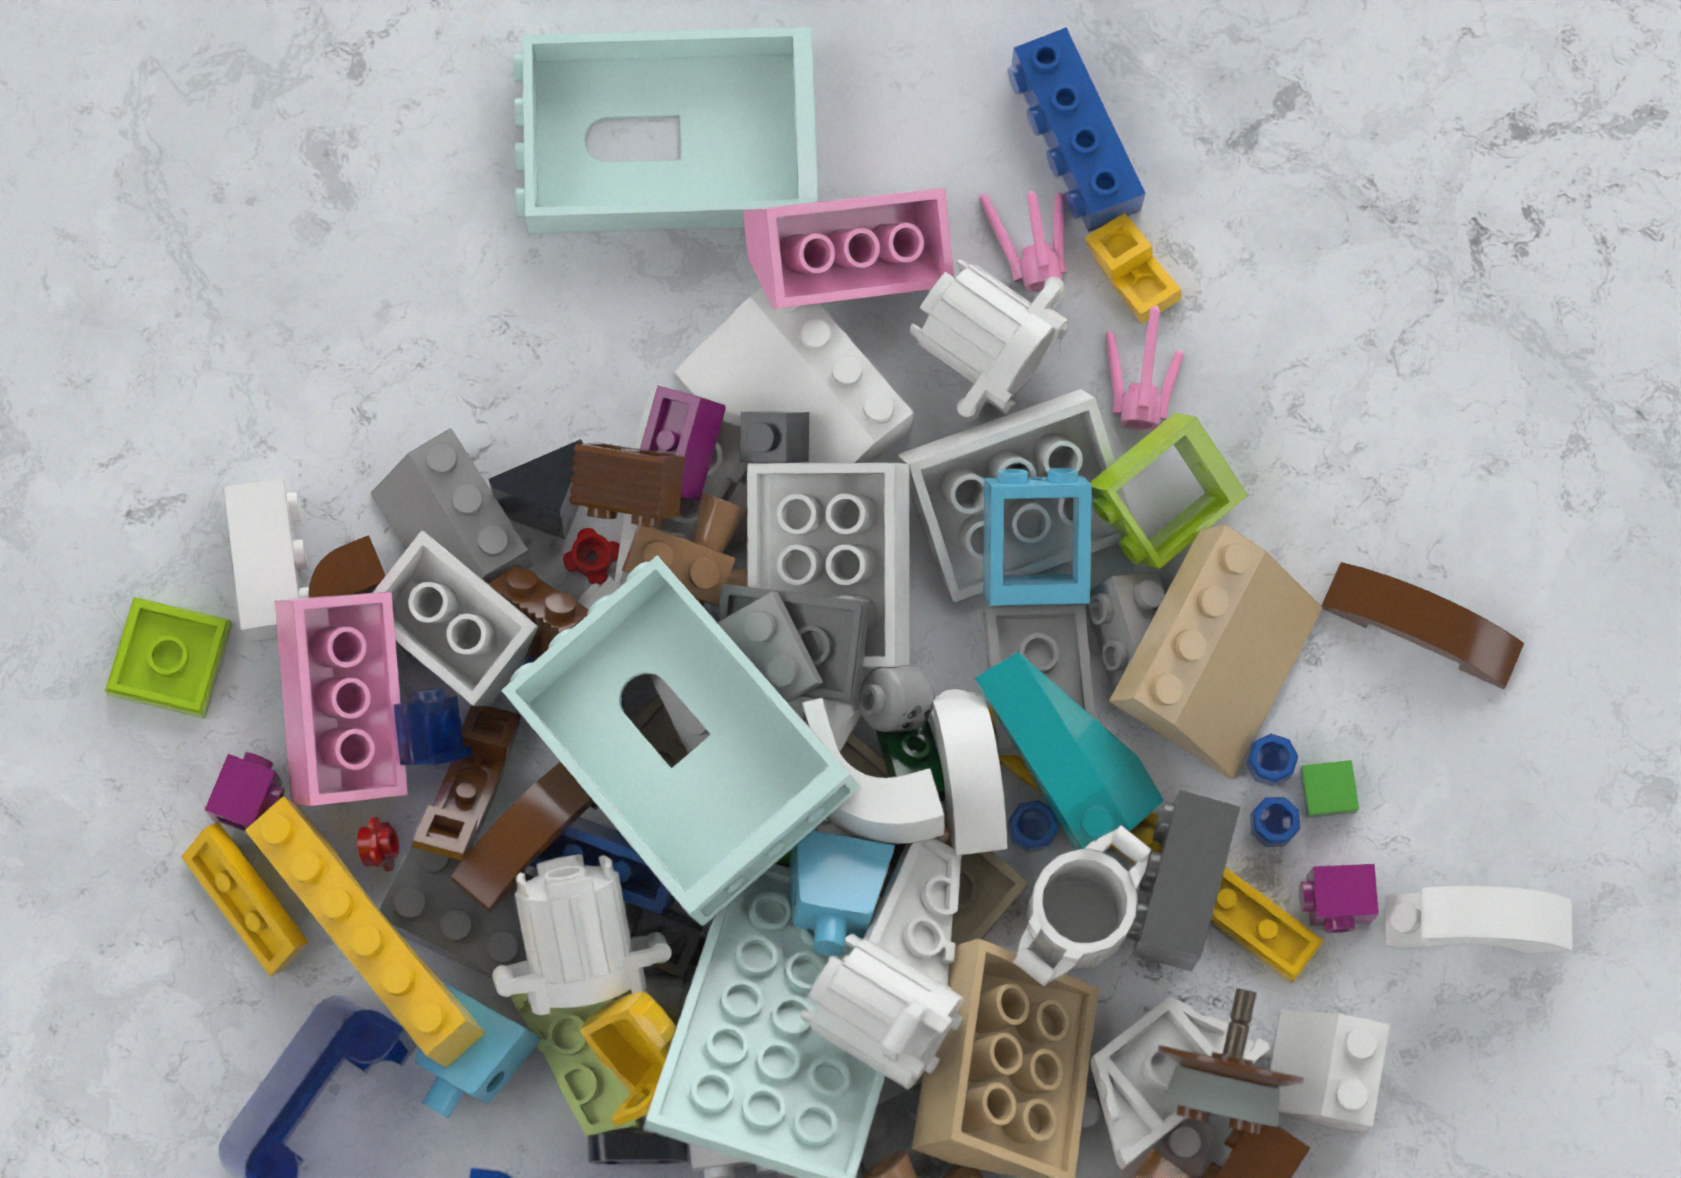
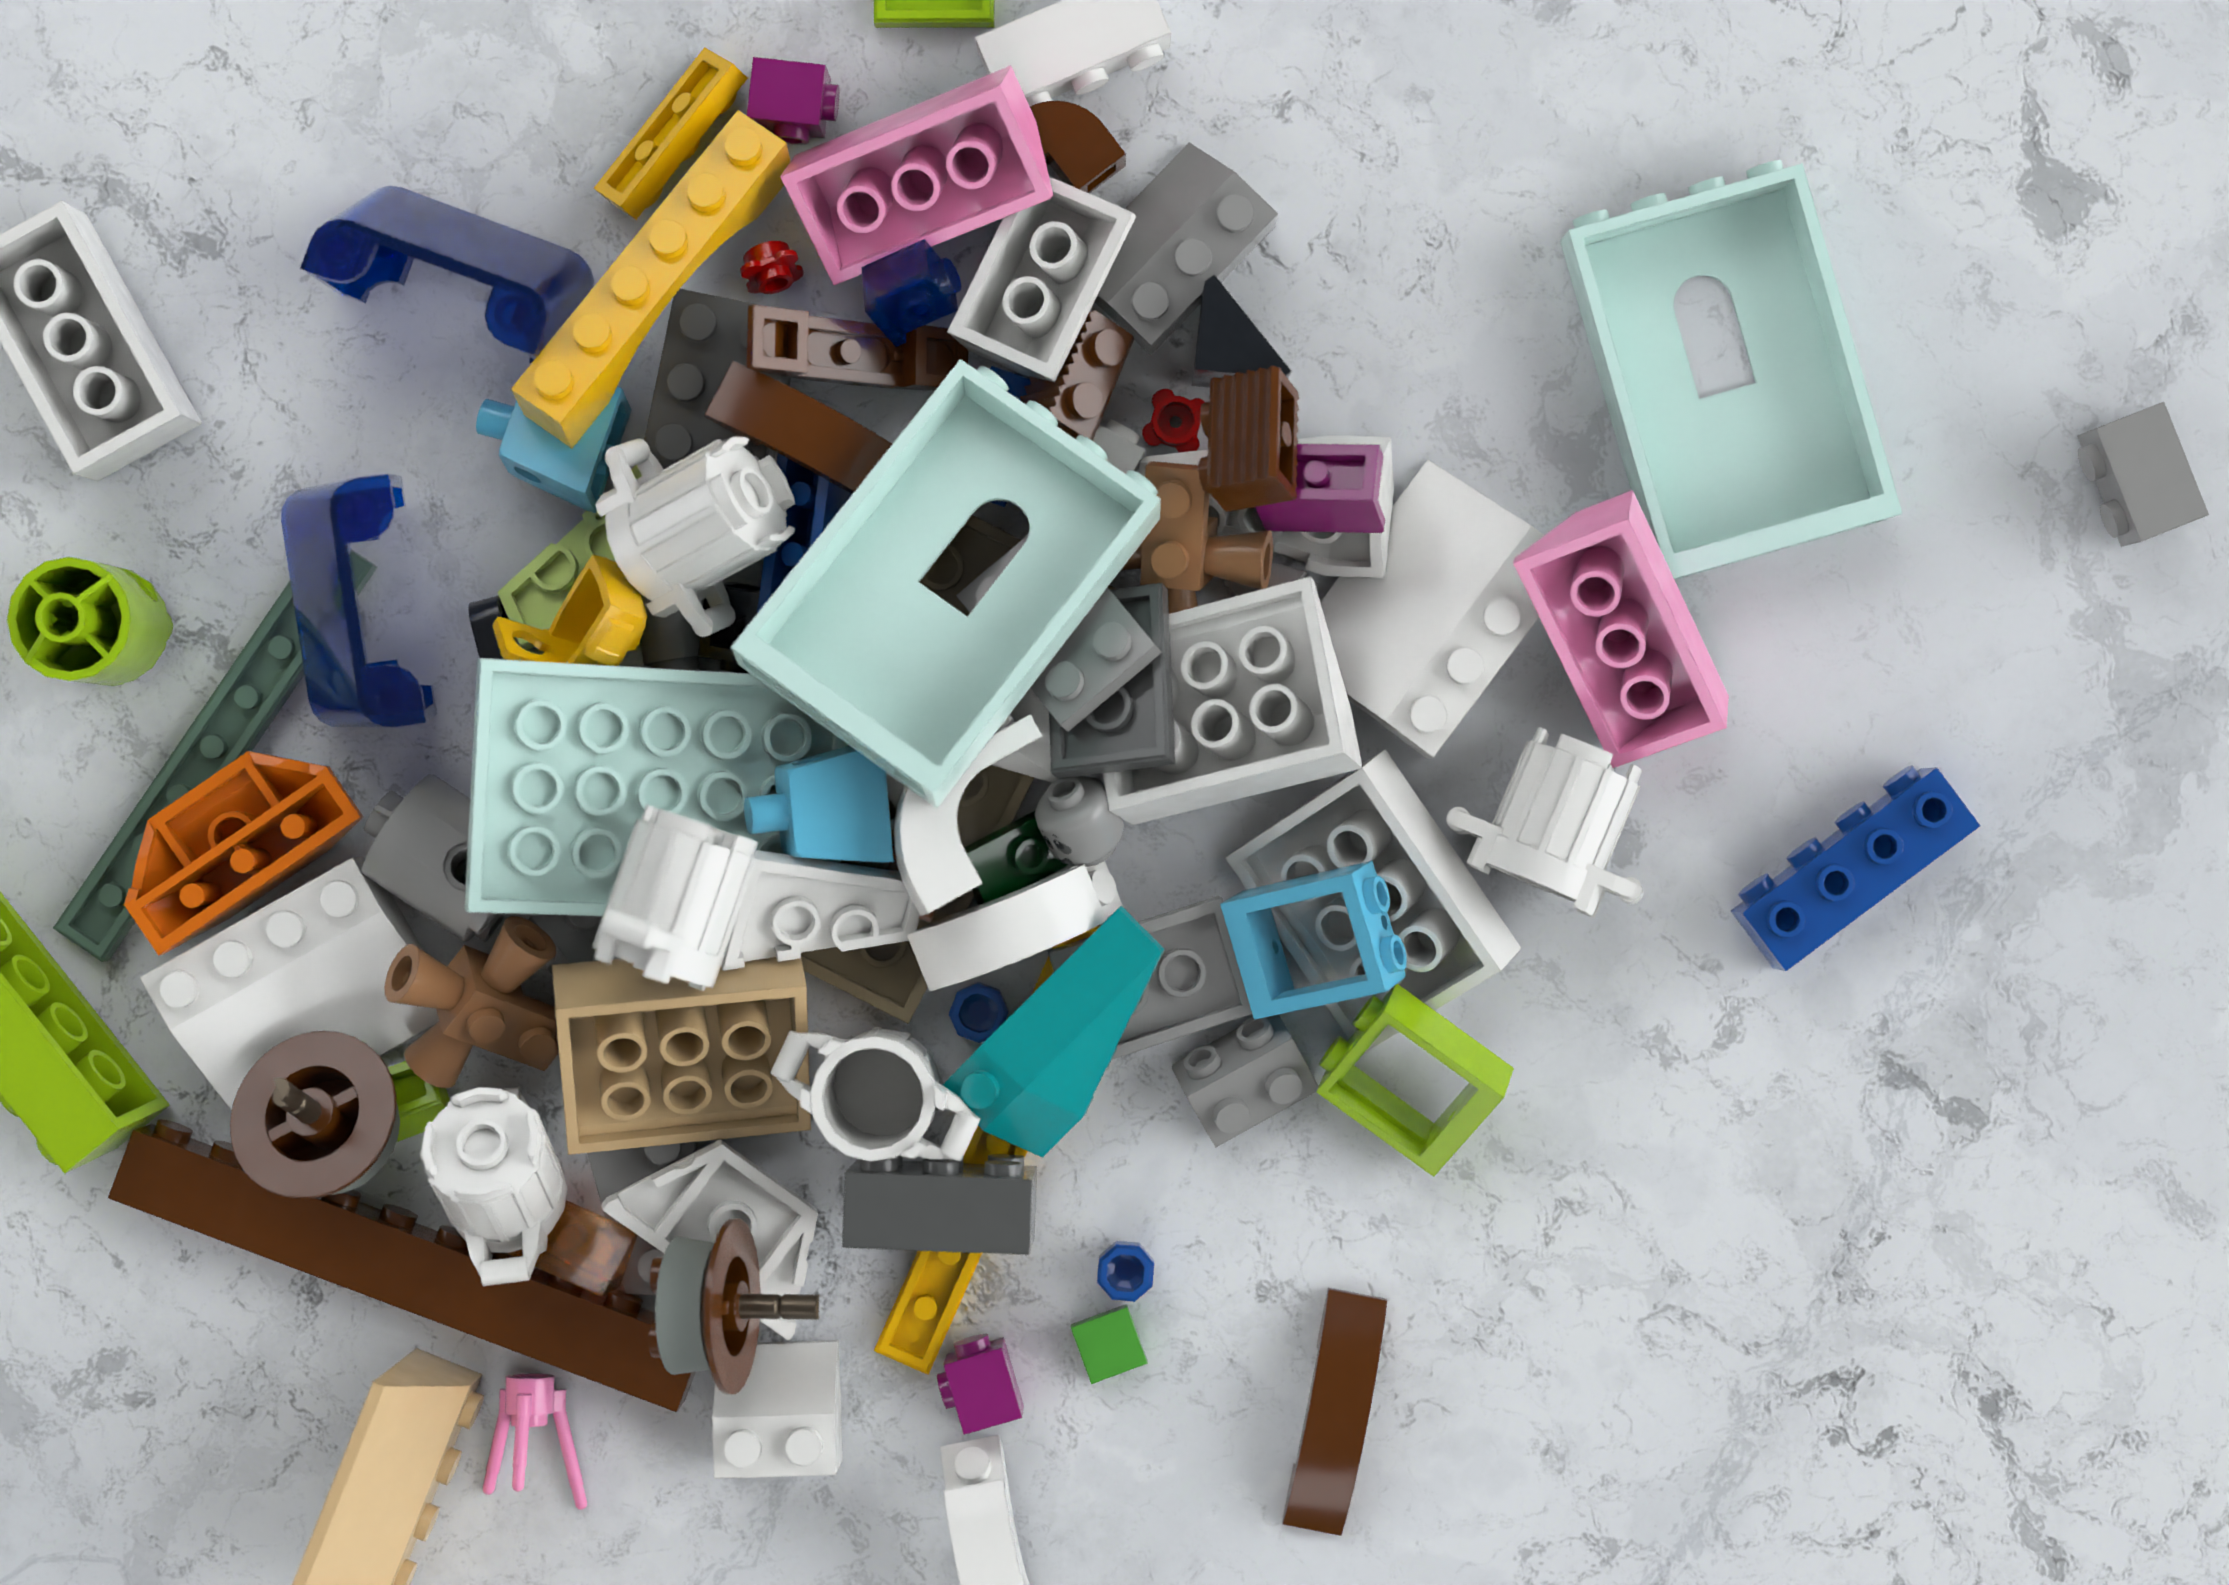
camera: 80 degrees right, 15 degrees up
(774, 437) = (1362, 599): black brick -> none
(1038, 259) = (1668, 862): bright pink plant -> none
(1131, 267) = (1693, 975): yellow slope -> none
(1141, 405) = (1521, 1024): bright pink plant -> none
(1218, 649) = (1236, 1180): tan slope -> none
(1275, 821) = (1052, 1290): blue tile -> none

